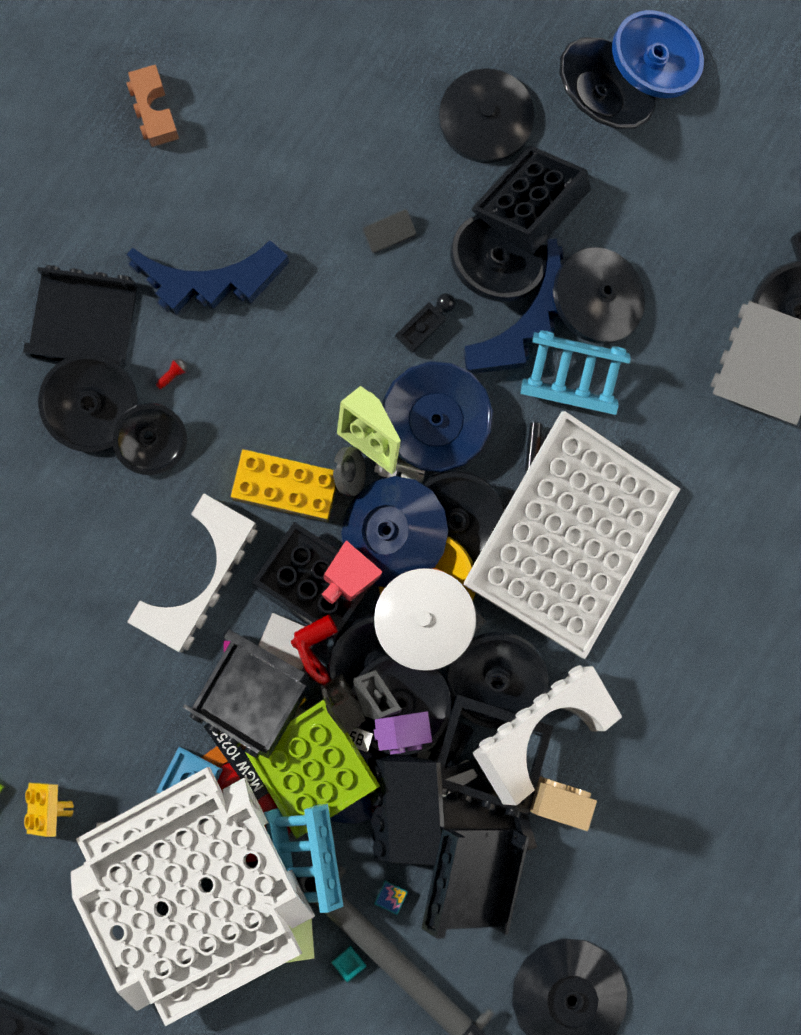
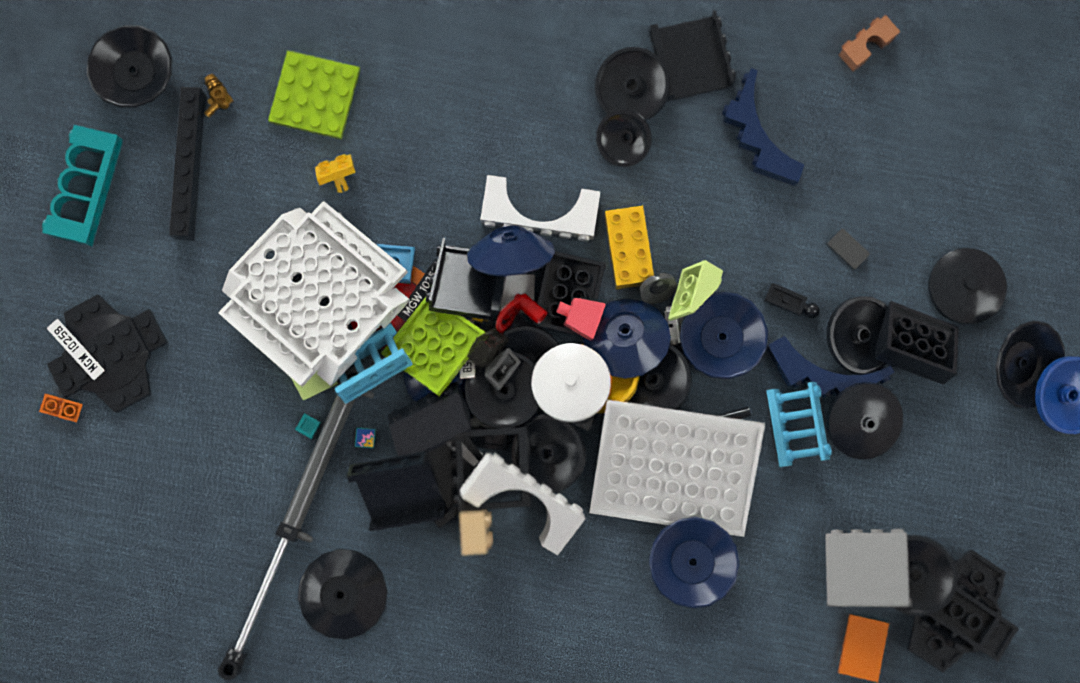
camera: 75 degrees right, 0 degrees up
(177, 368) = (683, 137): red piece -> none
(237, 631) = (510, 252): none -> dark blue dish
(403, 731) = (483, 396): medium lavender brick -> none
(715, 555) = (714, 568): none -> dark blue dish

